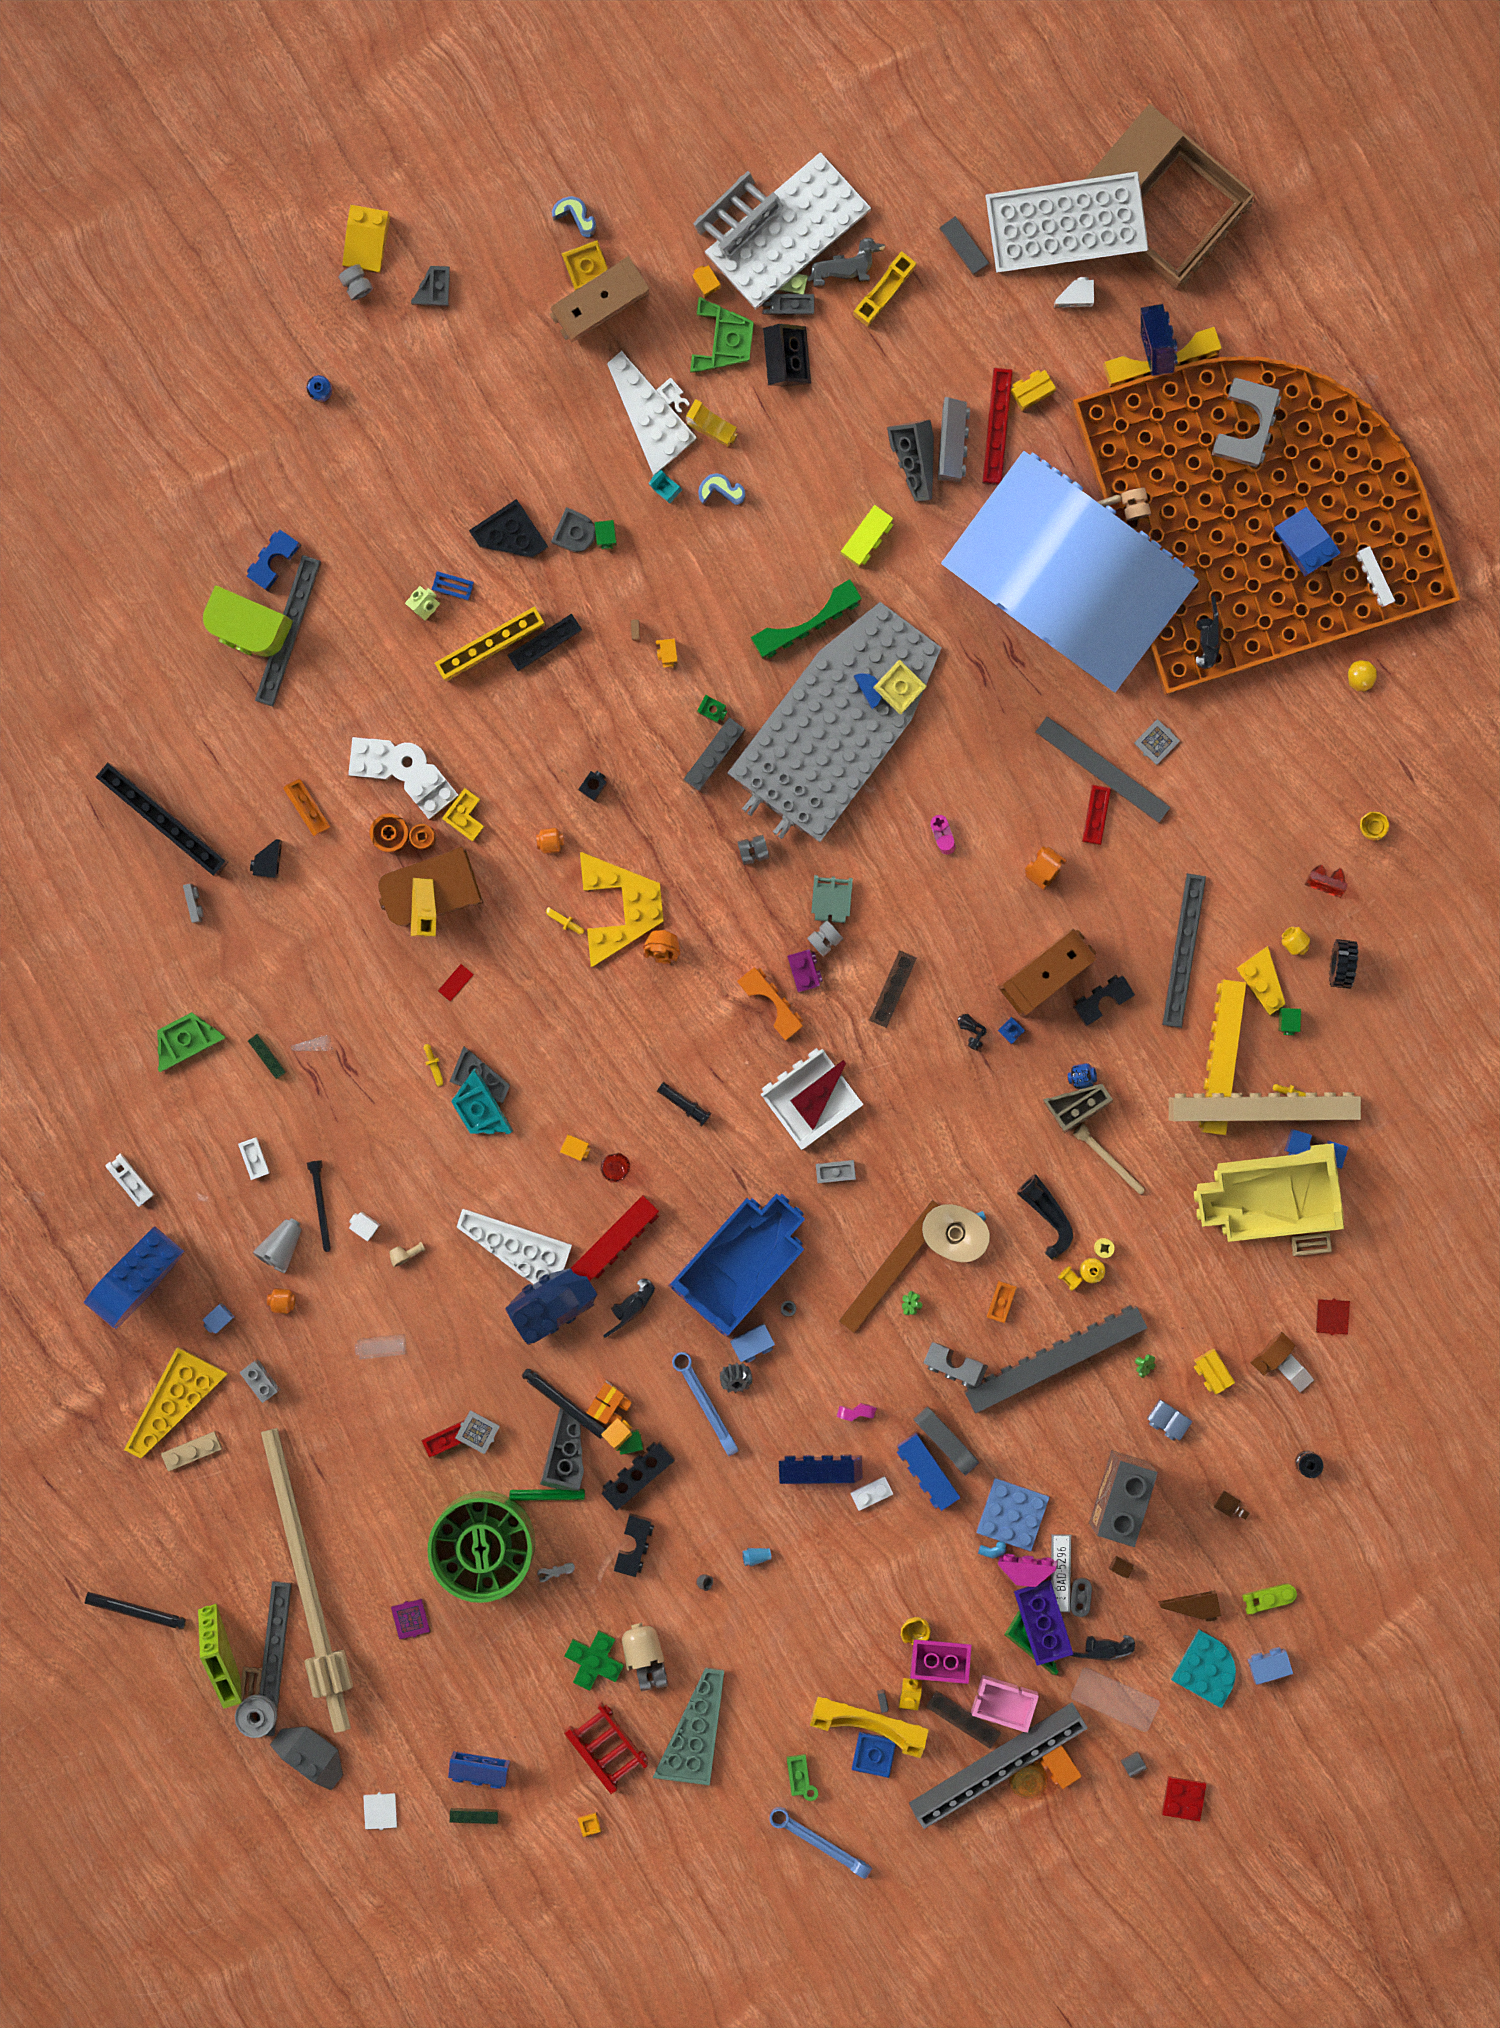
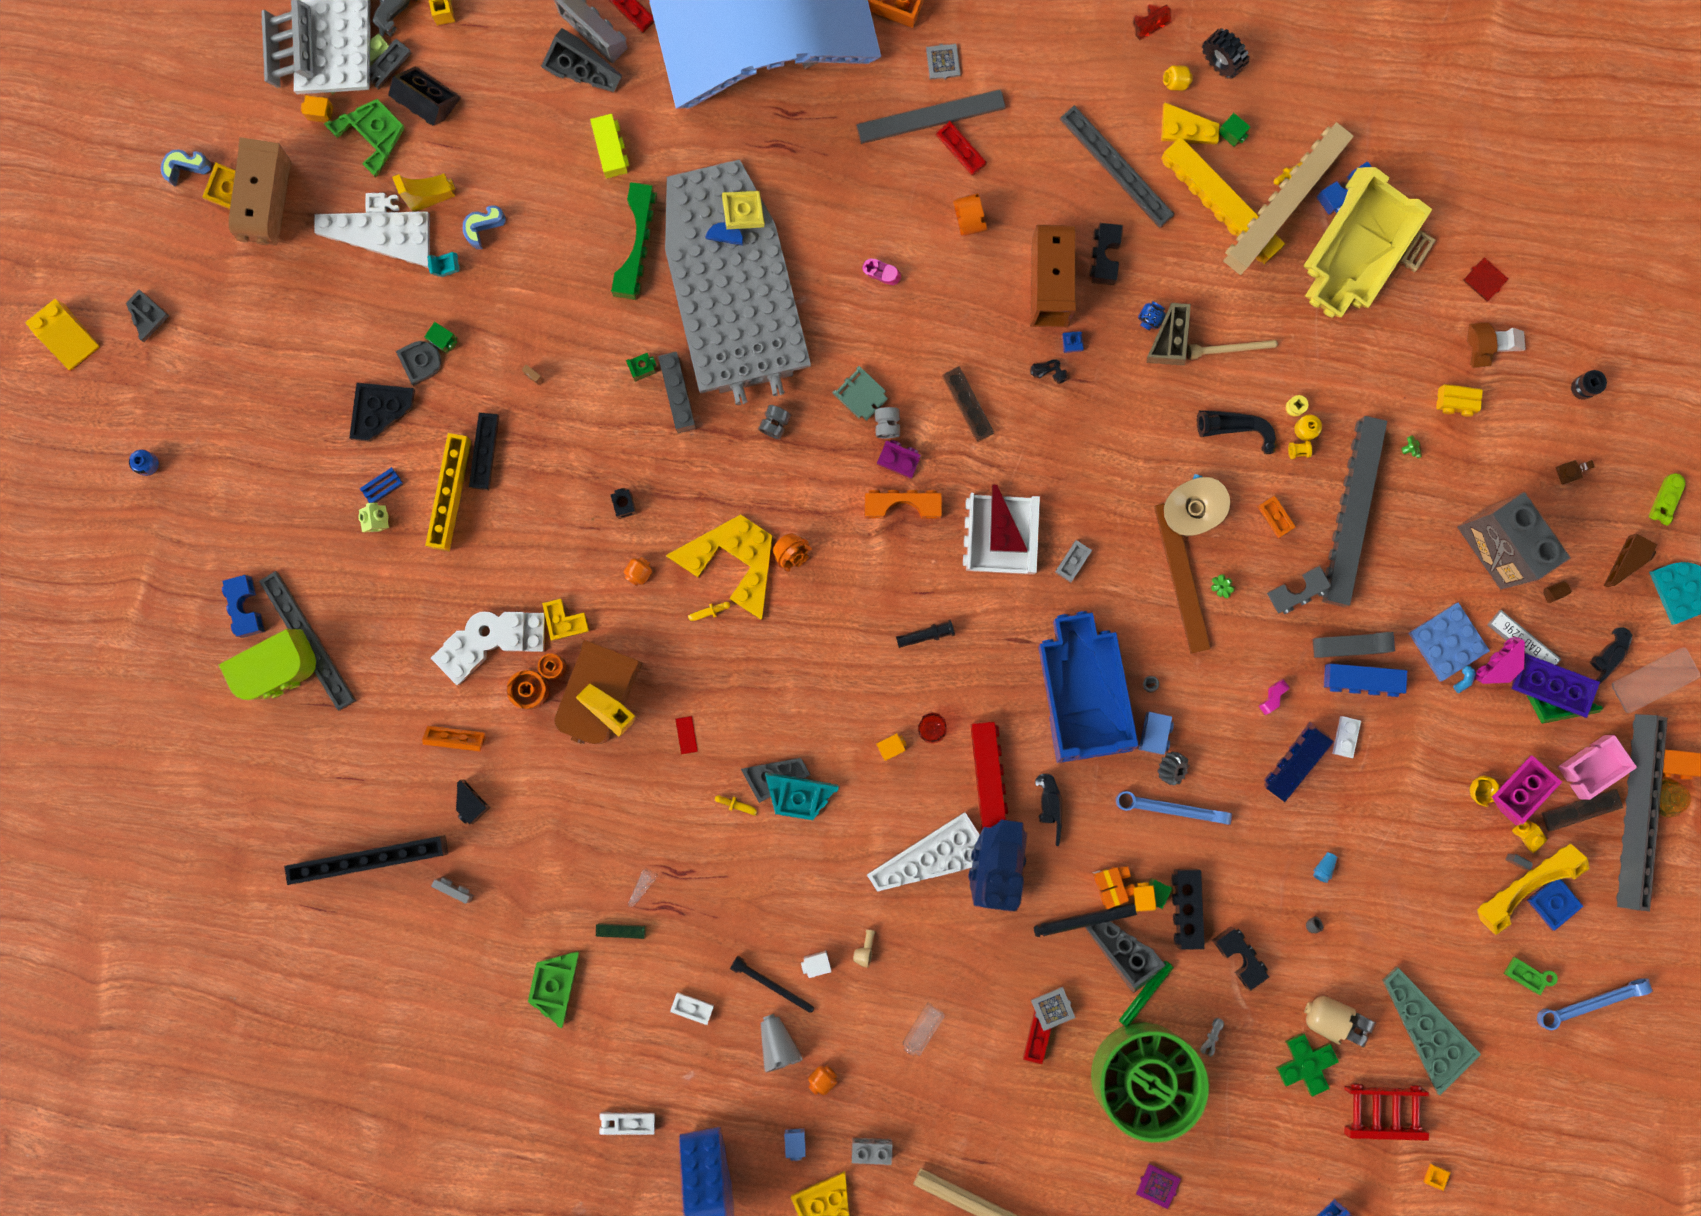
camera: 60 degrees left, 5 degrees down
(354, 279) = (88, 368): light grey wheel -> none
(667, 652) = (570, 364): light orange brick -> none
(1081, 1596) = (1555, 640): flat silver plate -> none
(1169, 1420) = (1469, 463): sand blue brick -> none

